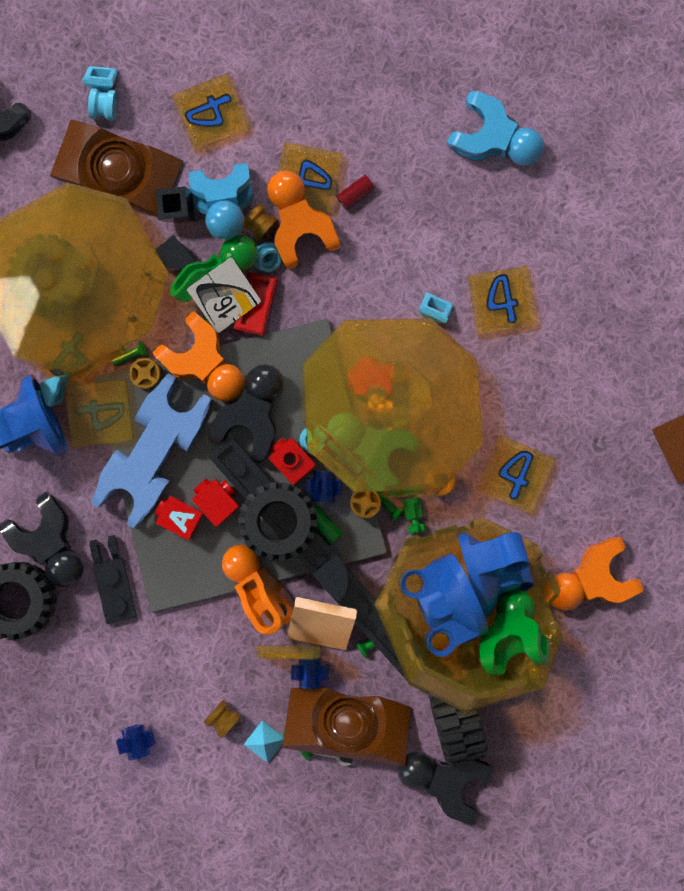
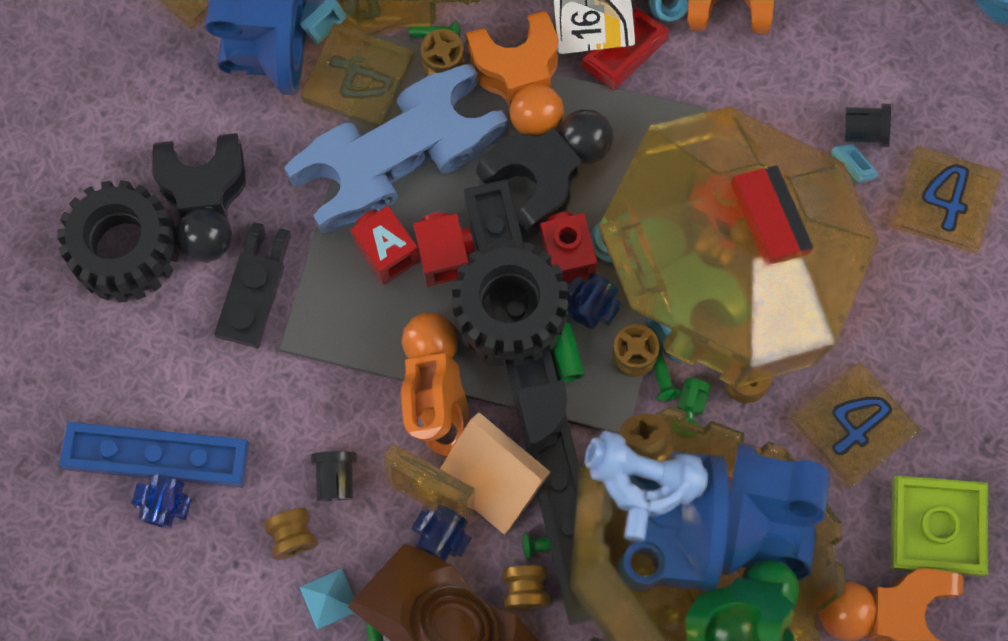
camera: 30 degrees right, 15 degrees down
(114, 715) = (148, 452): none -> blue plate
(227, 670) = (334, 474): none -> black bush
(375, 676) = (526, 587): none -> pearl gold wheel
(396, 604) = (613, 461): none -> light blue piece
(410, 398) = (771, 215): none -> red tile
(416, 581) = (648, 436): none -> pearl gold wheel
(431, 277) = (868, 125): none -> black bush
(593, 511) = (939, 525): none -> lime plate

